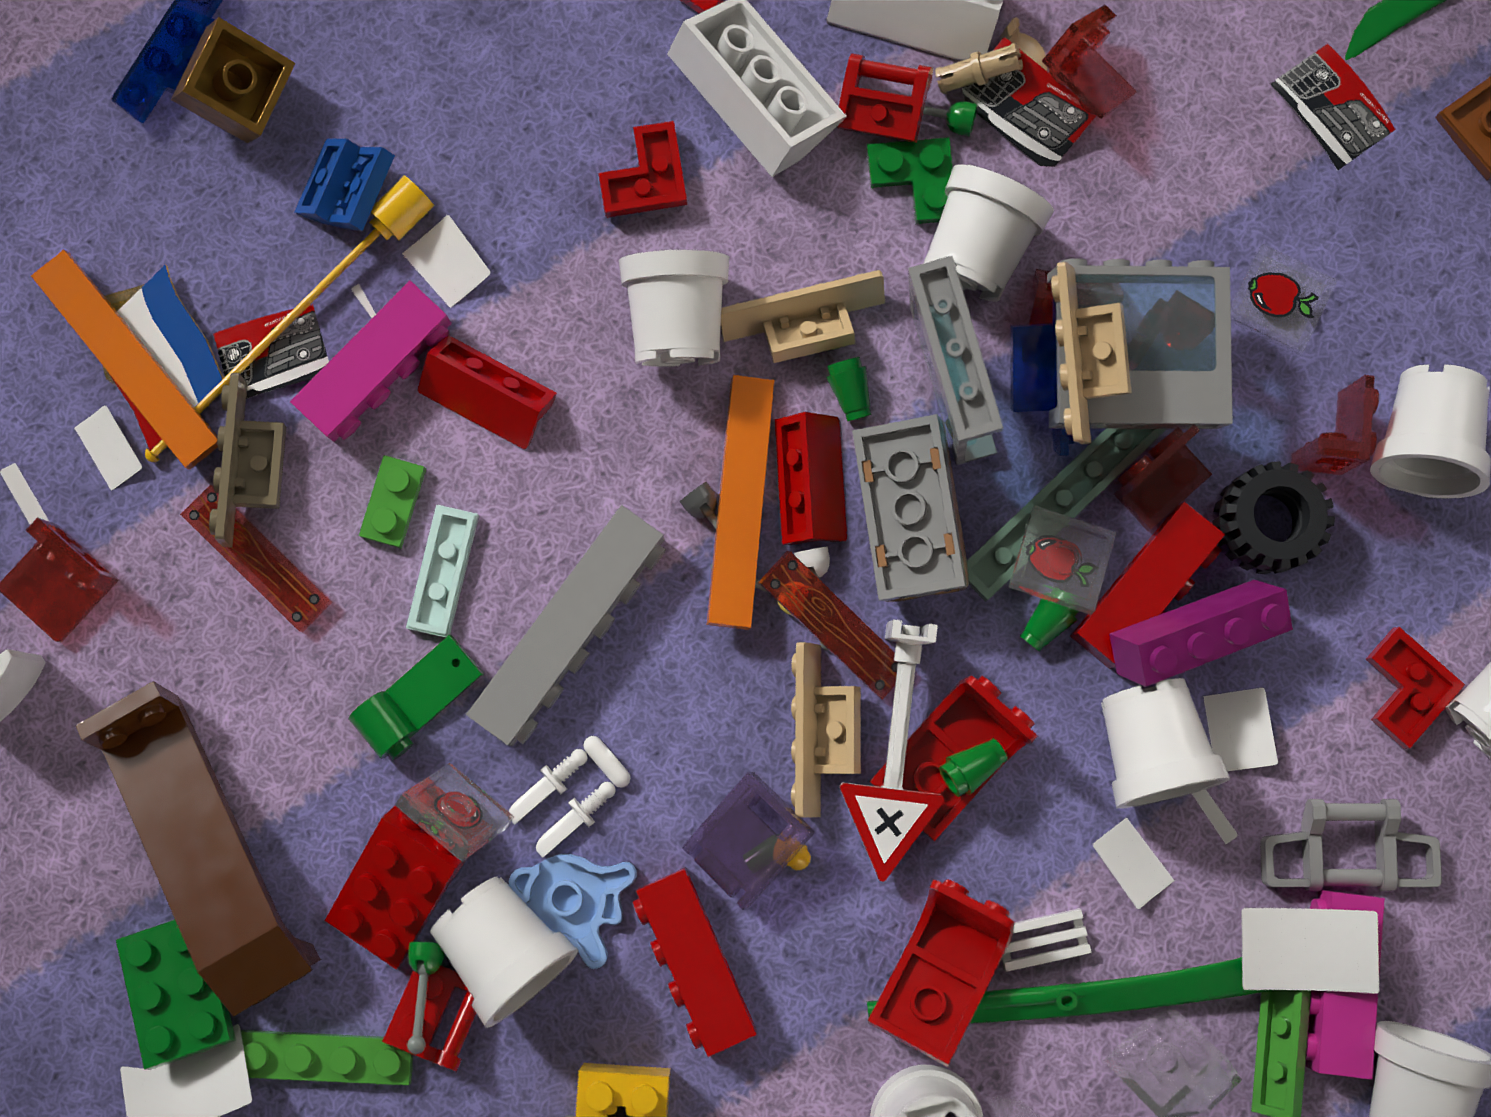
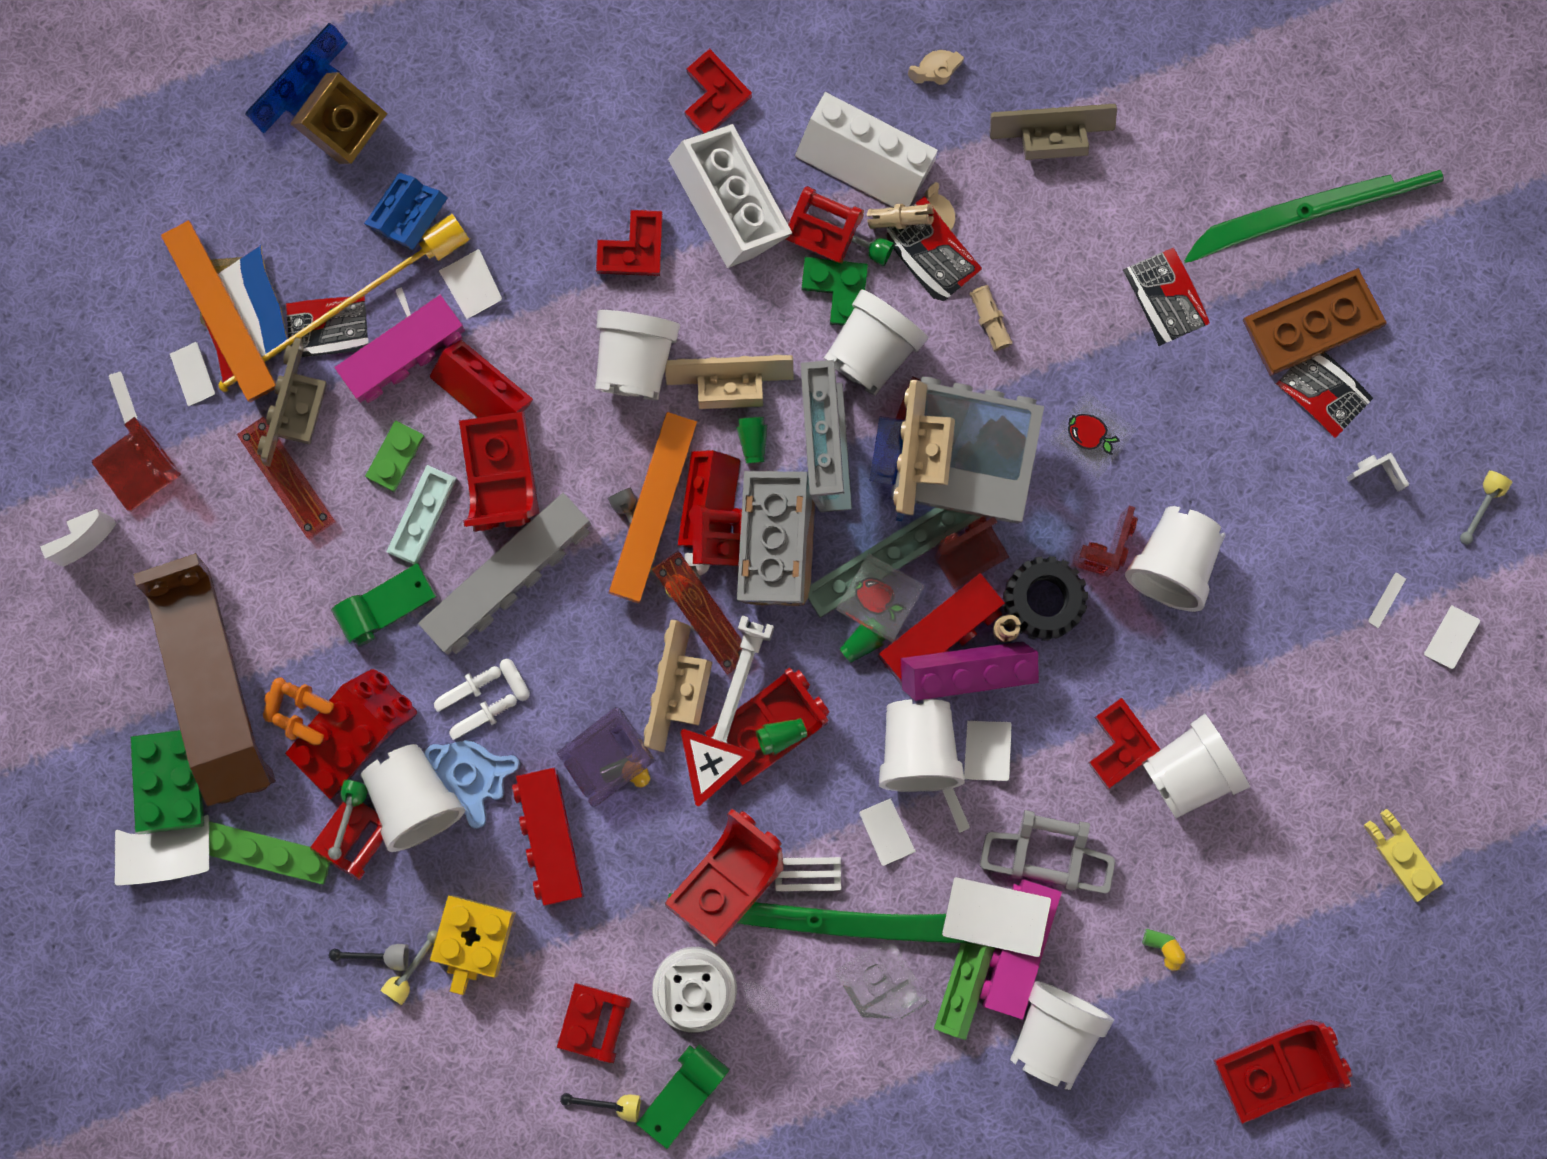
camera: 10 degrees right, 0 degrees up
(333, 844) = (303, 697): none -> orange piece
(455, 811) = (396, 692): clear tile -> none
(531, 494) = (498, 471): none -> red bracket
(833, 536) = (715, 547): none -> red plate
(1083, 70) = (980, 233): clear red bracket -> none
(1120, 175) = (991, 318): none -> tan pin
(1236, 567) = (1012, 623): none -> tan pin

